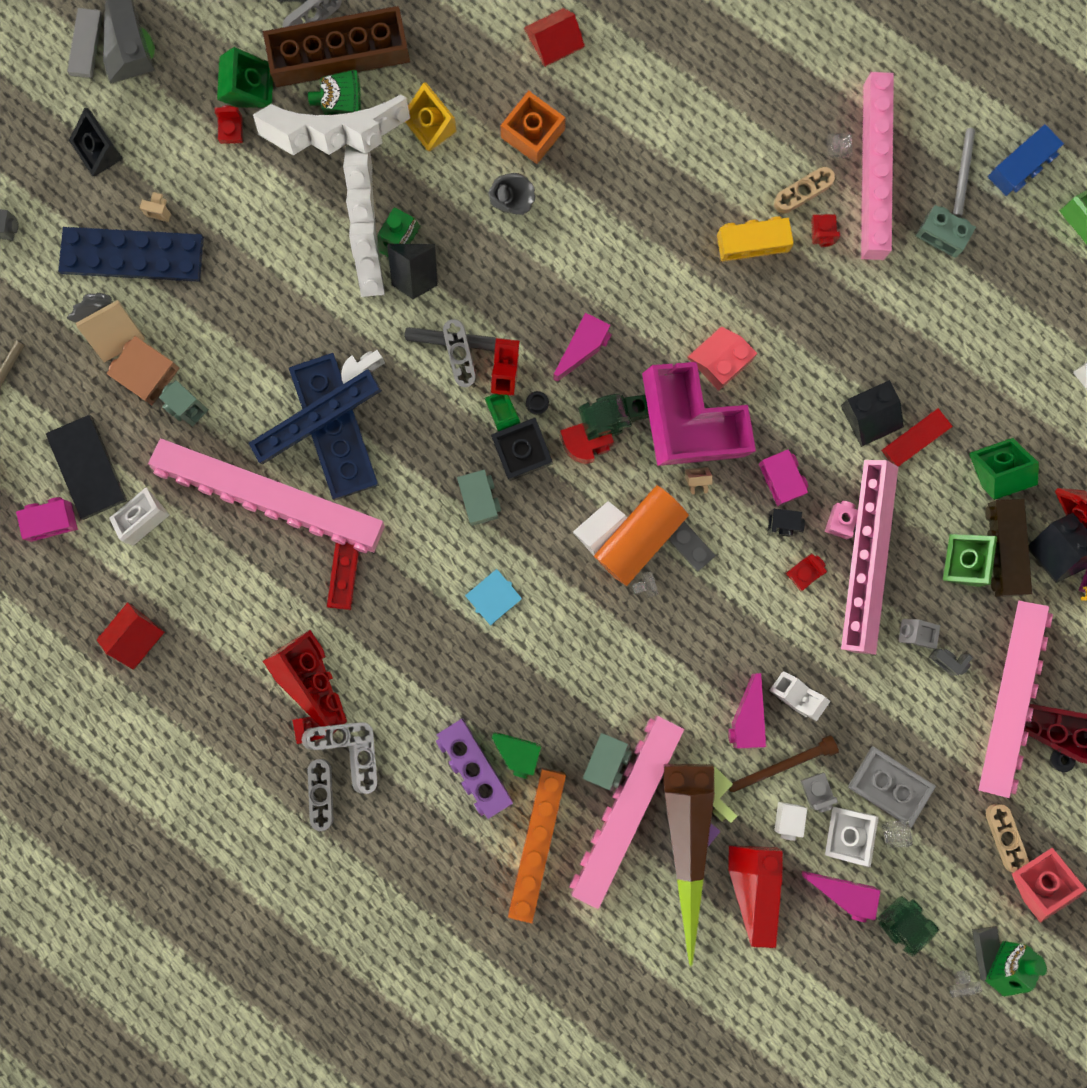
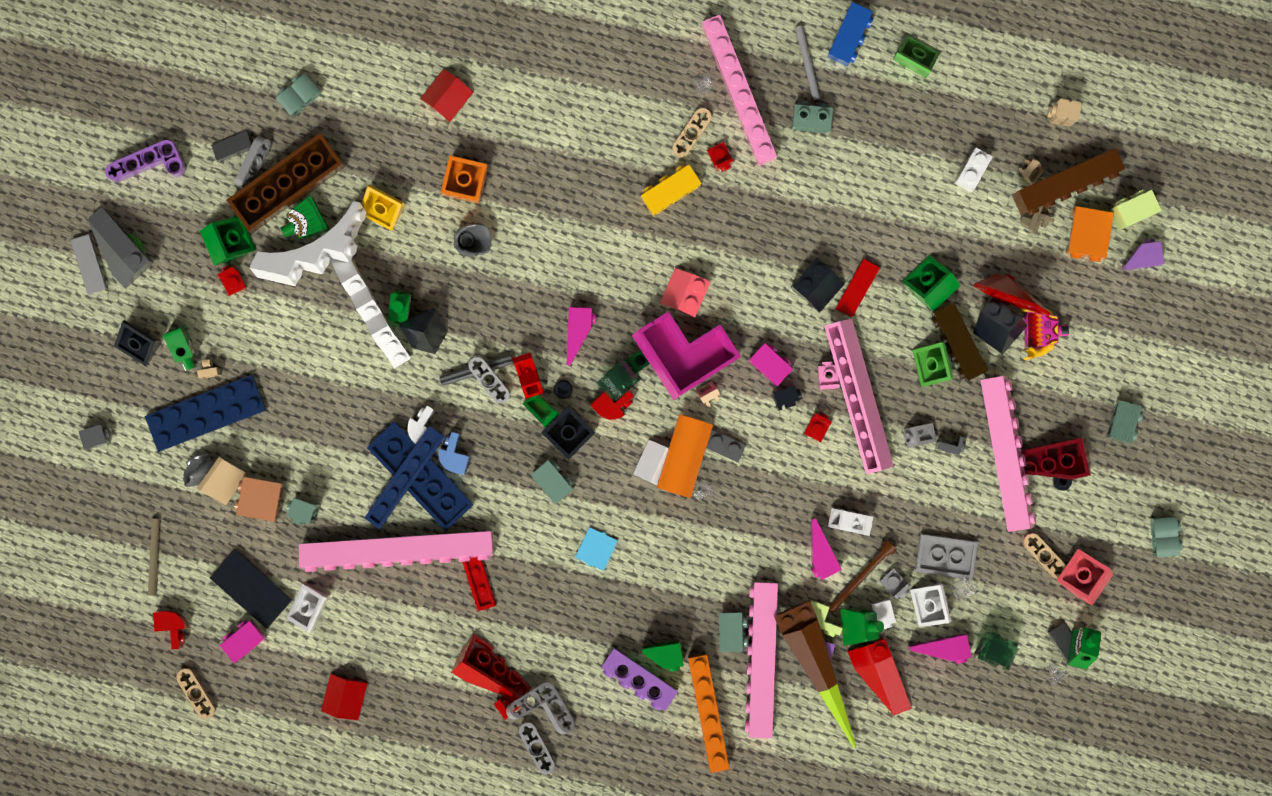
camera: 20 degrees left, 5 degrees up
(137, 166) = (179, 338): none -> green torso
(376, 420) = (449, 459): none -> medium blue brick
(759, 823) = (859, 625): none -> green torso

